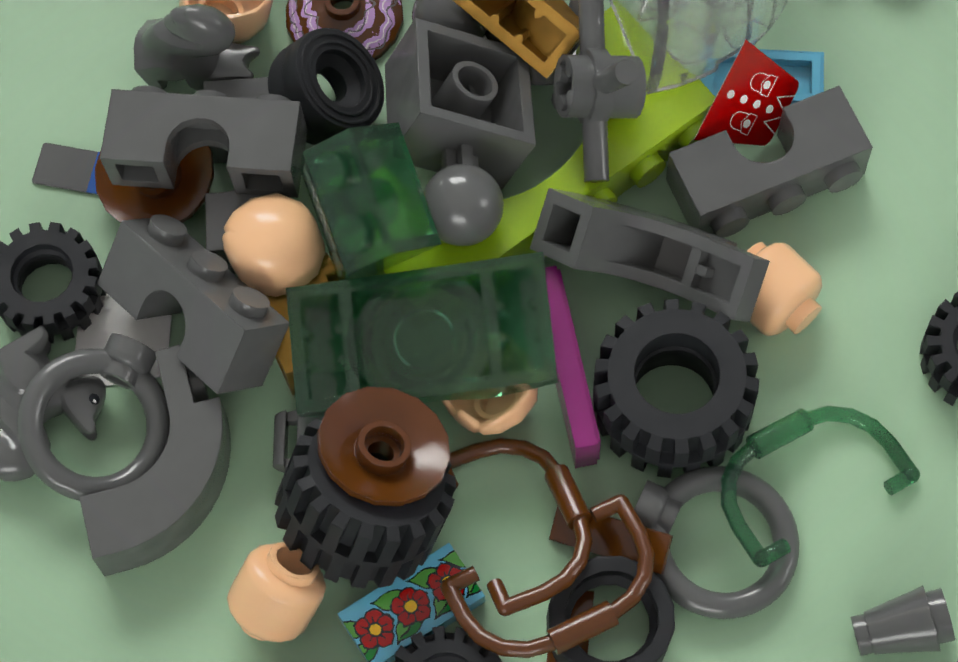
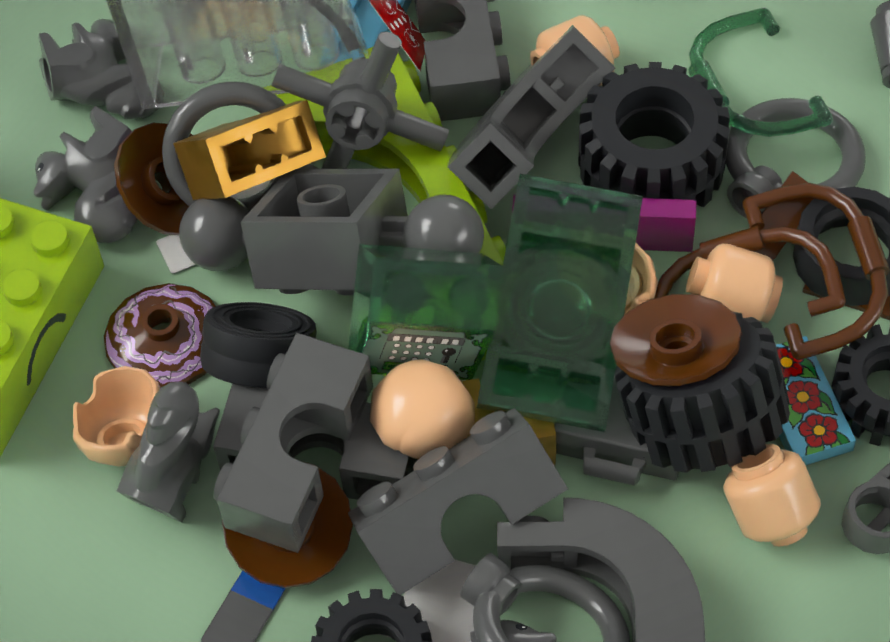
camera: 75 degrees left, 10 degrees down
(519, 510) = (738, 280): none -> light nougat head

